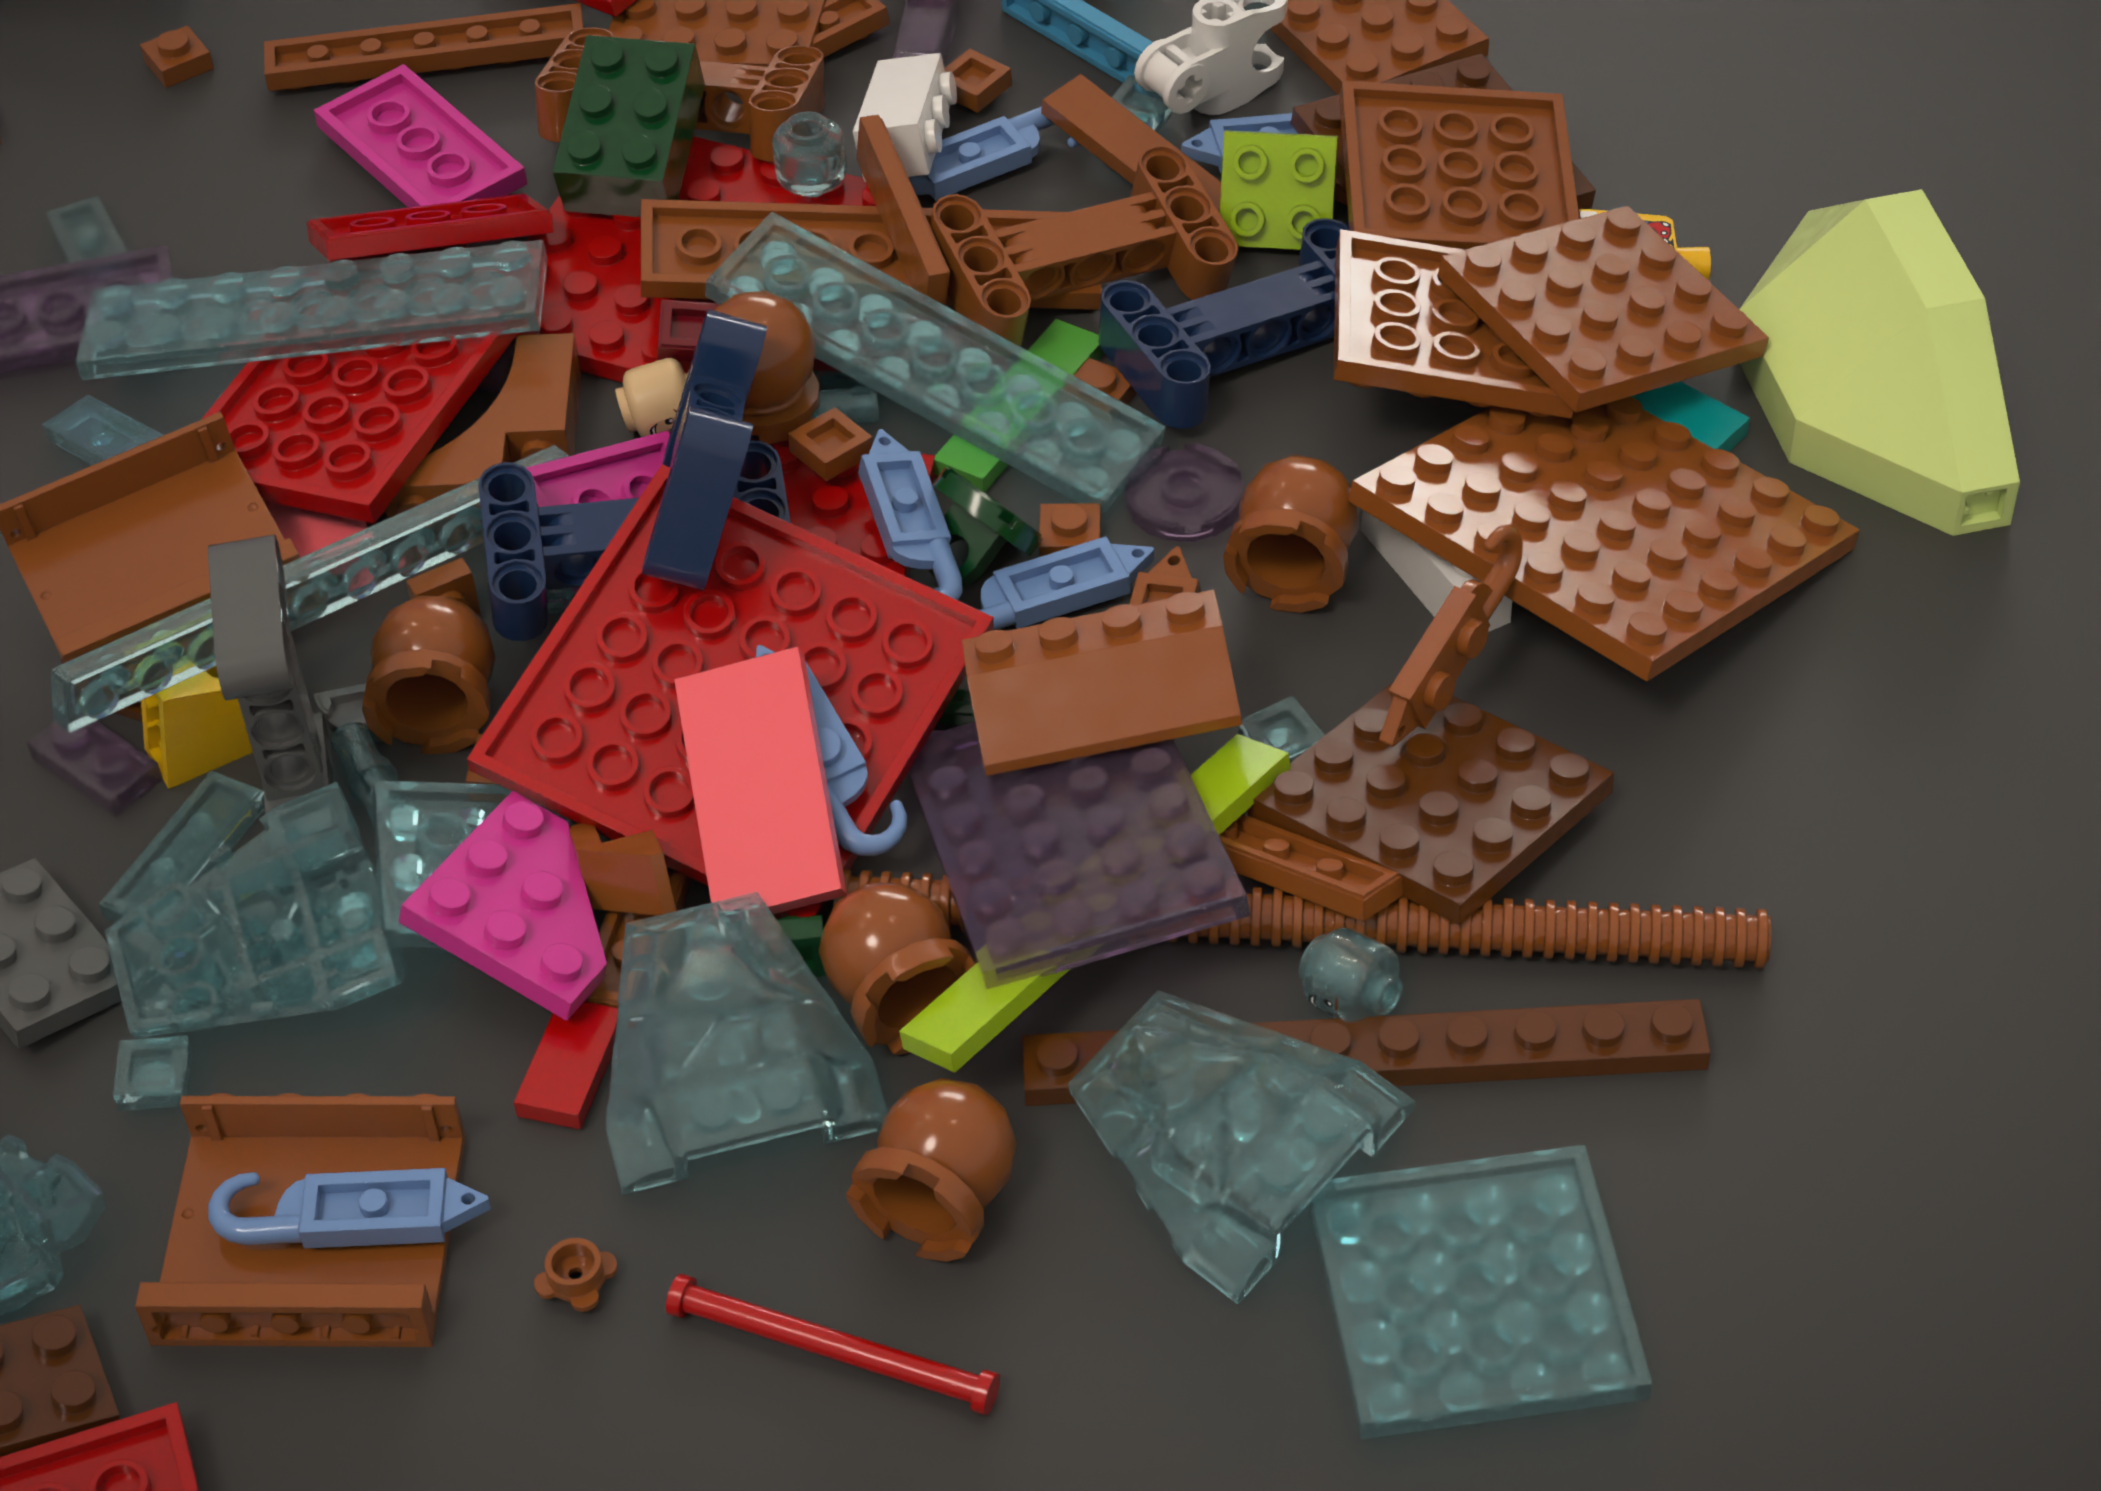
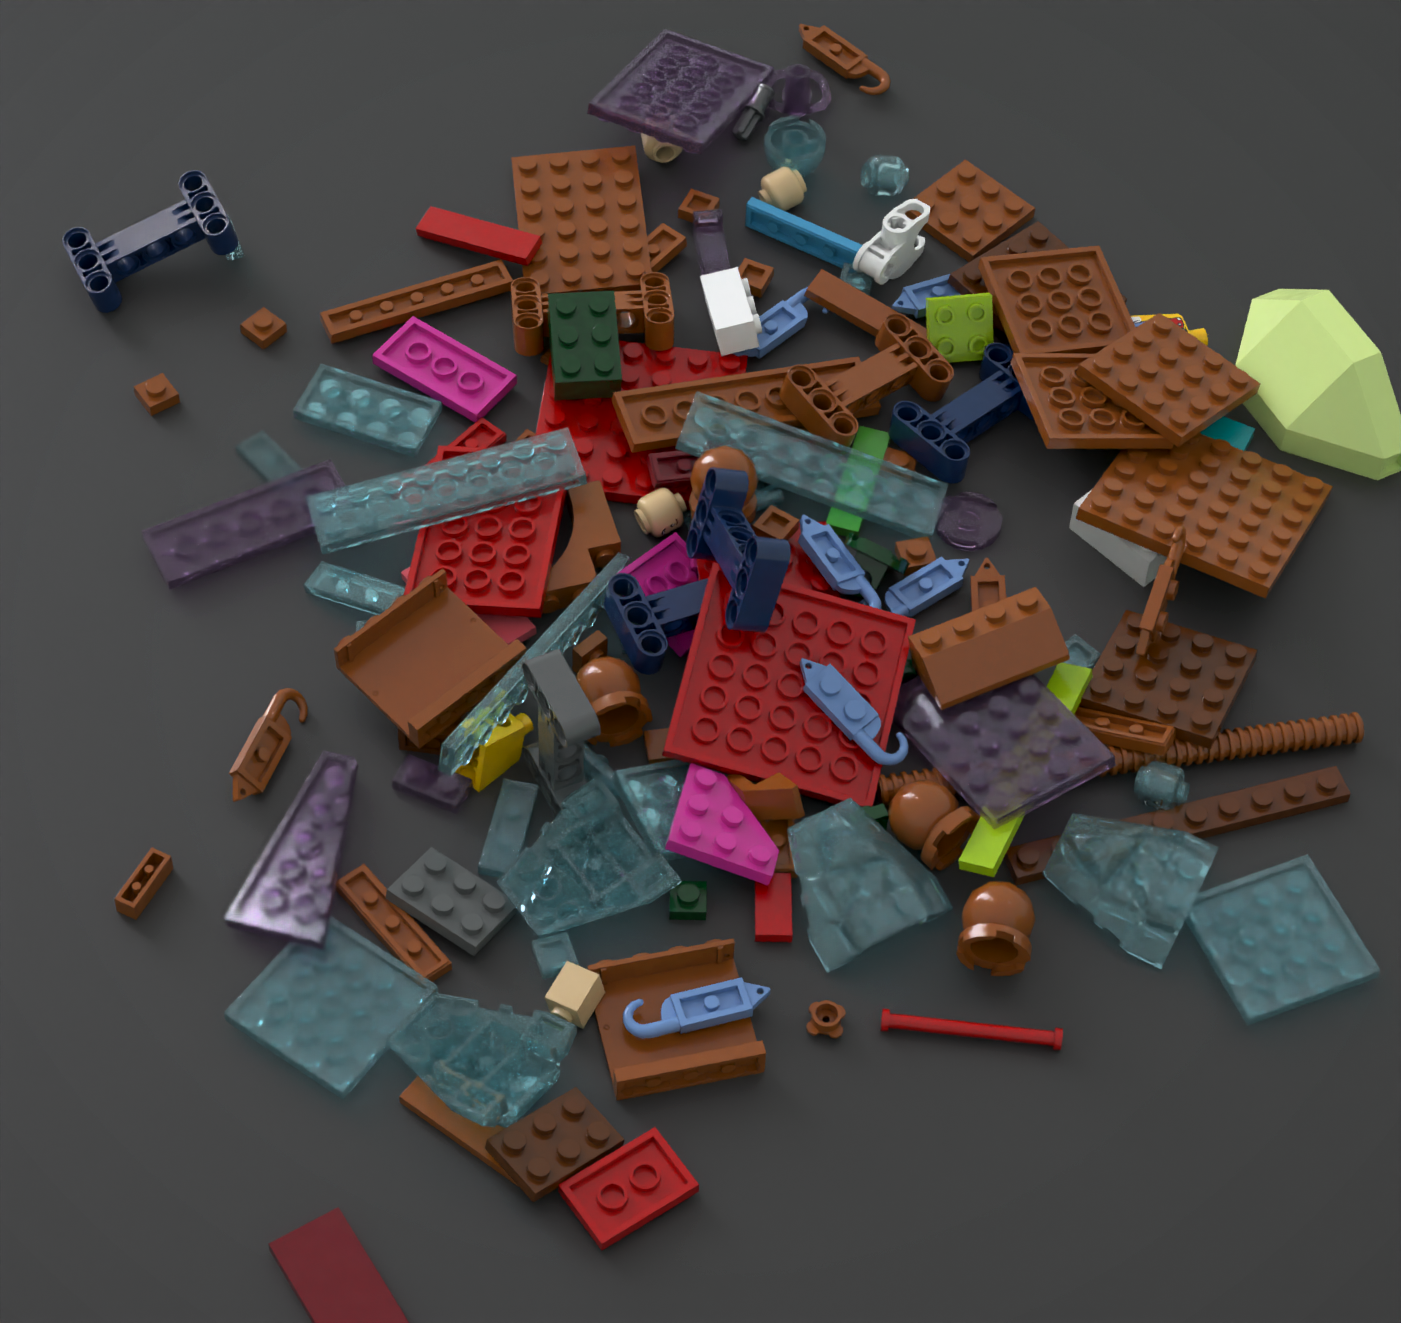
camera: 20 degrees left, 5 degrees up
(145, 1145) = (575, 994): none -> tan brick
(265, 184) = (368, 410): none -> clear light blue plate
(428, 226) = (486, 425): red tile -> none
(428, 1024) = (688, 901): none -> dark green plate
(760, 782) = (830, 736): coral tile -> none
(809, 154) = (692, 346): clear light blue head -> none
(901, 210) = (763, 376): dark orange tile -> none
(1293, 534) = (1046, 539): dark orange tile -> none

